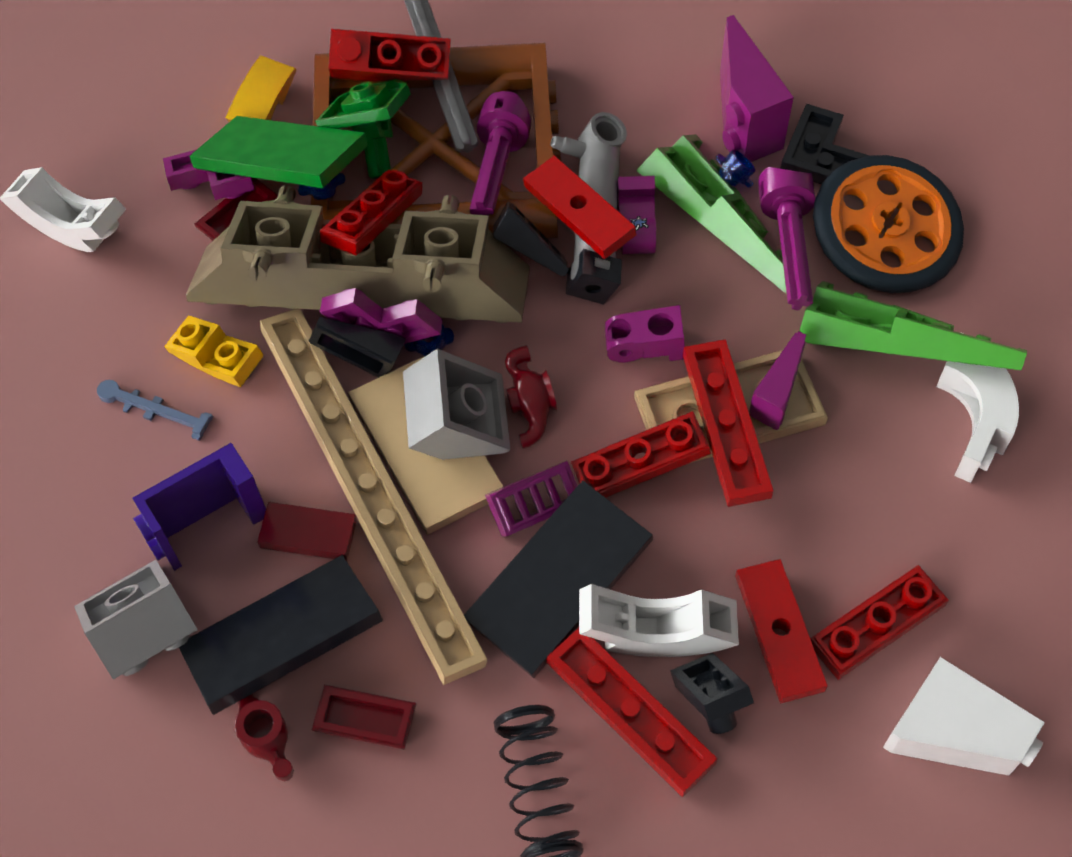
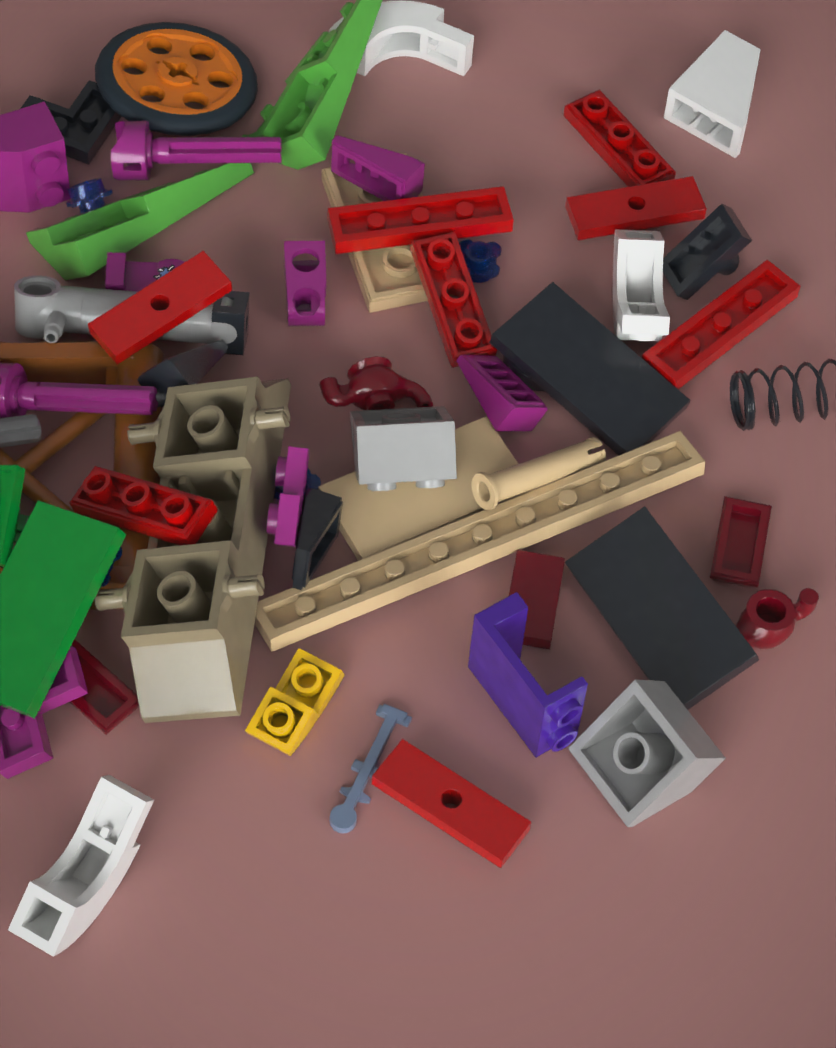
camera: 95 degrees left, 5 degrees down
(86, 479) = (428, 785): none -> red tile
(432, 527) = (532, 474): none -> tan pin
(693, 494) = (481, 259): none -> clear blue plate

